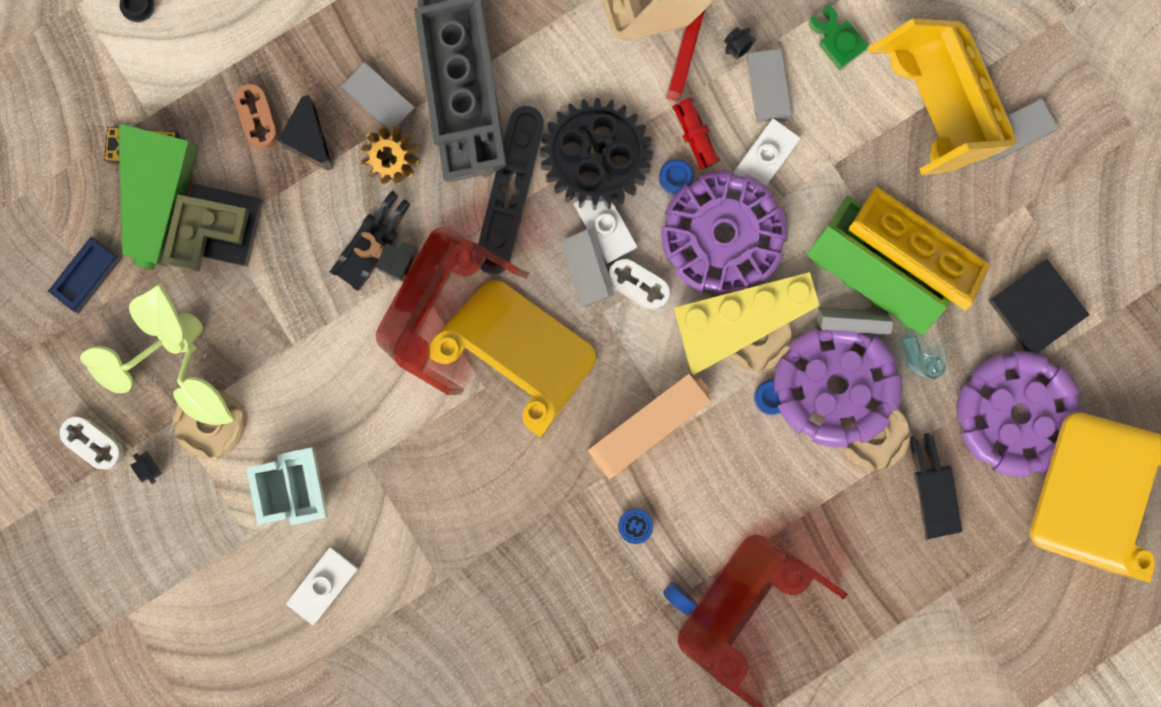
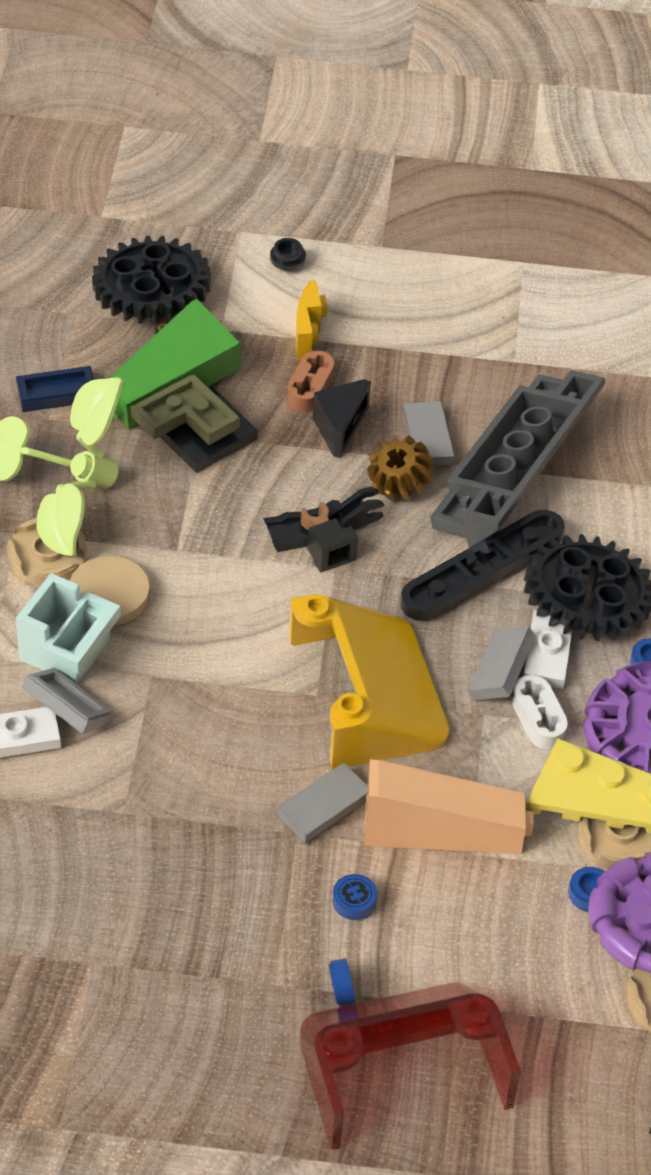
camera: 35 degrees right, 35 degrees down
(70, 87) = (150, 279): none -> black gear
(207, 60) = (308, 320): none -> yellow slope
(280, 421) = (116, 581): none -> tan tile
(336, 536) = (68, 700): none -> light grey tile
(440, 256) = (342, 574): clear red windscreen -> none
(560, 472) = (323, 803): none -> light grey tile

